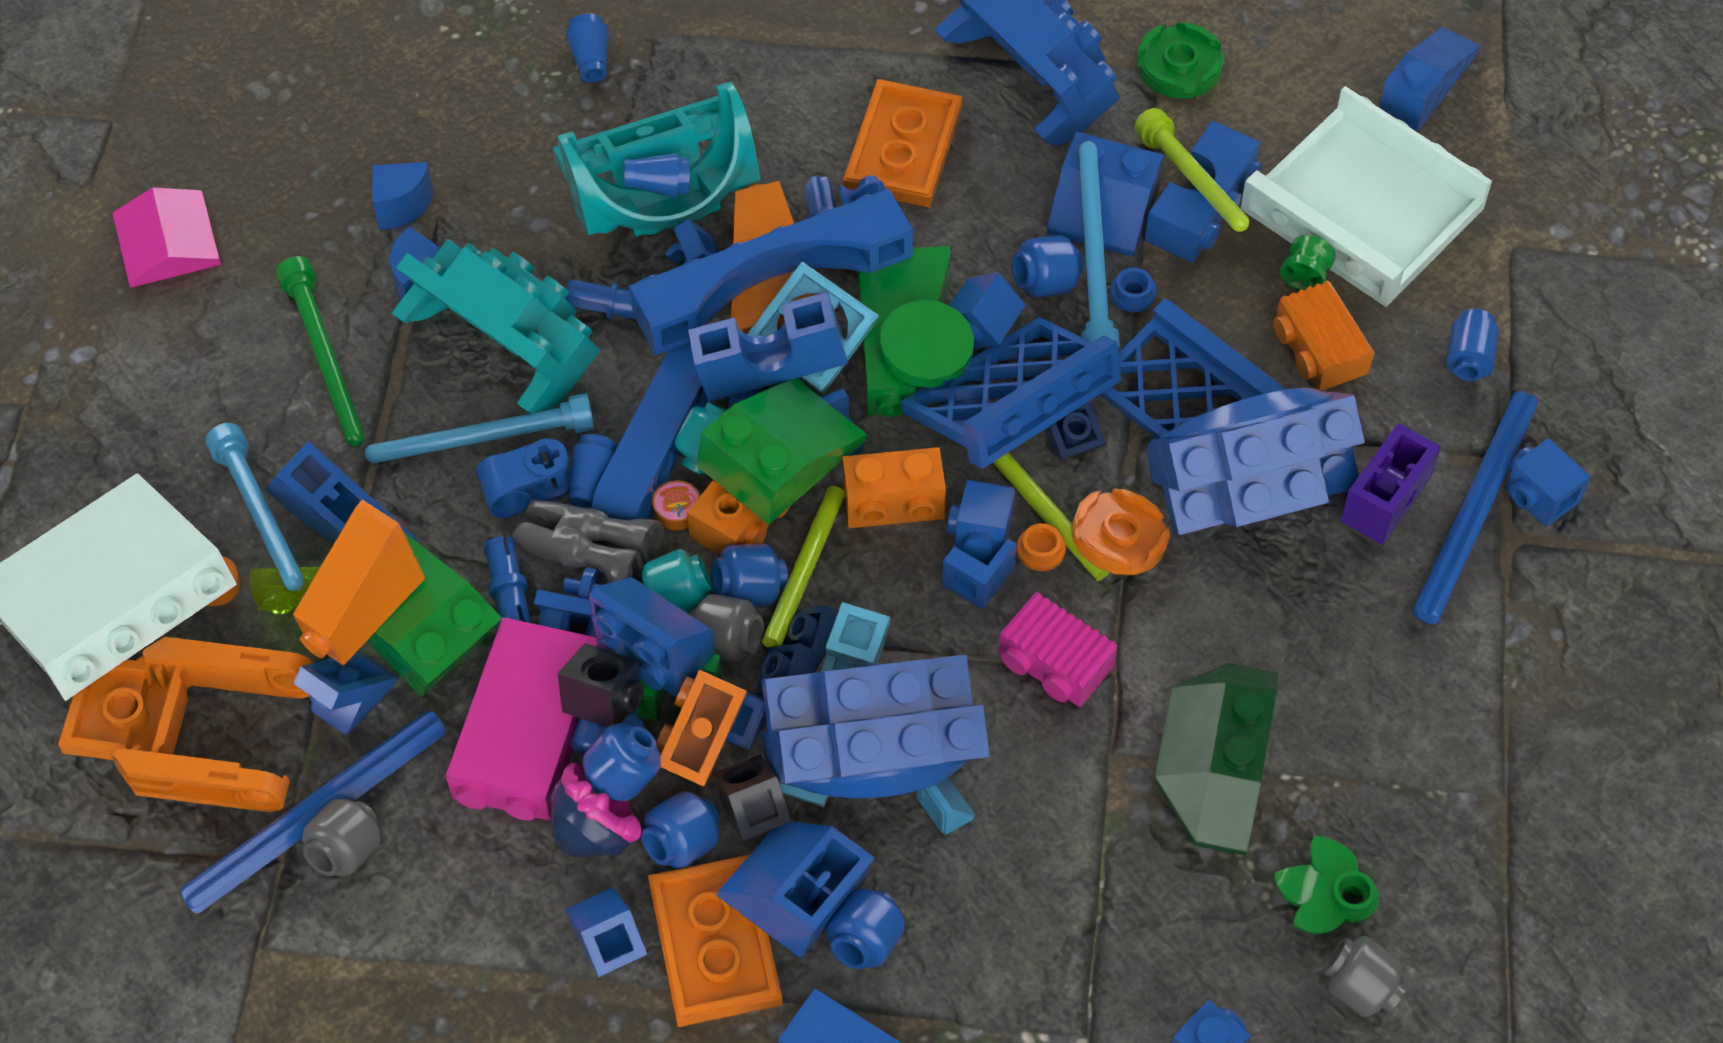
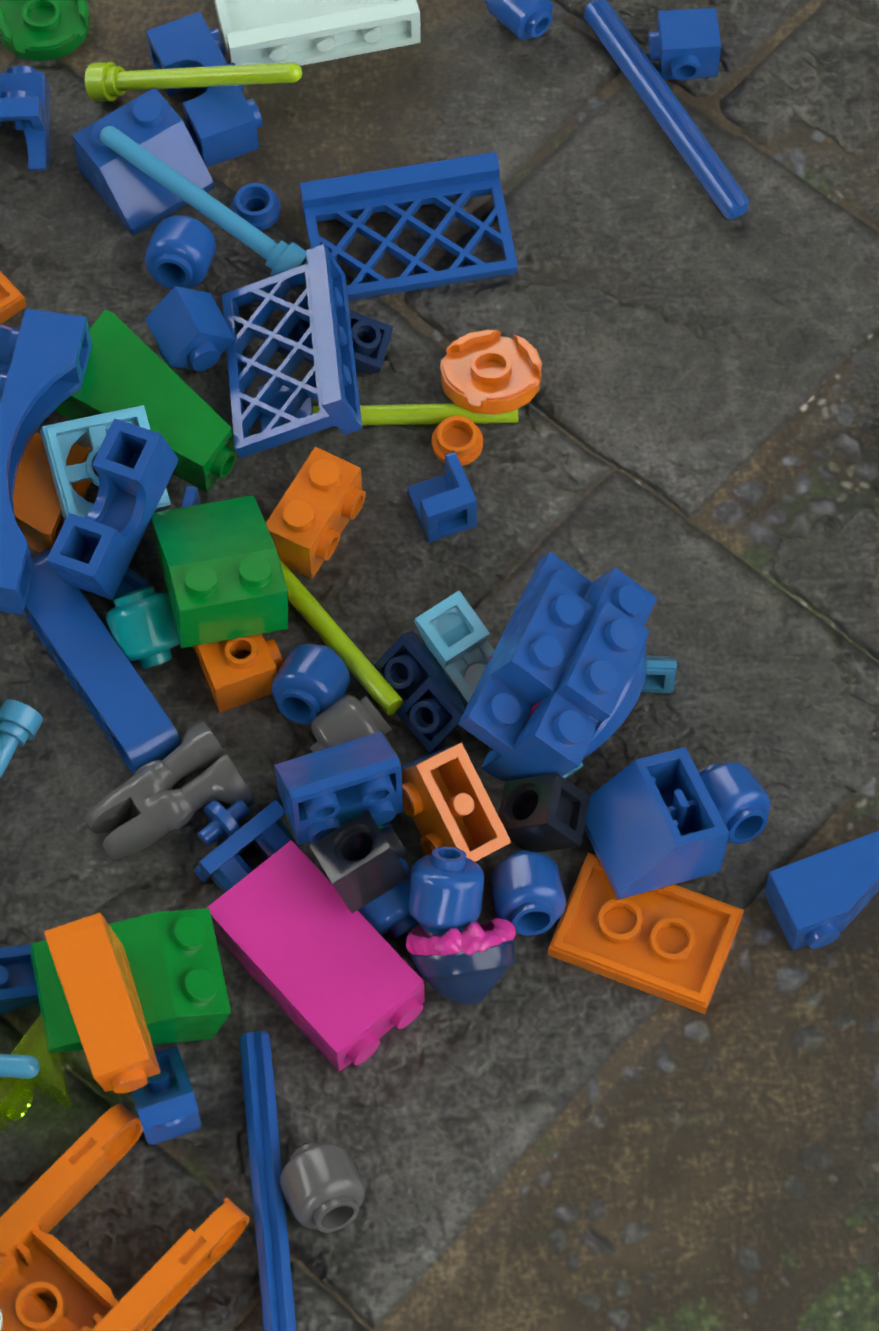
camera: 55 degrees left, 5 degrees up
(506, 582) = (155, 890): blue pin -> none
(520, 476) = (53, 815): blue piece -> none
(589, 463) = (90, 747): blue cone -> none
(606, 931) = (579, 1014): blue brick -> none
(673, 502) = (183, 699): tile -> none
(678, 578) = (269, 741): teal head -> none
(926, 343) = (199, 389): green tile -> none
(982, 519) = (404, 465): blue brick -> none
(1056, 650) = (571, 491): dark pink brick -> none
(1217, 753) = (757, 432): dark green wedge -> none
(1257, 458) = (519, 227): piece -> none
(1307, 262) = (341, 64): green wheel -> none
(1322, 336) = (422, 101): orange brick -> none
(1390, 483) = (609, 147): dark purple brick -> none

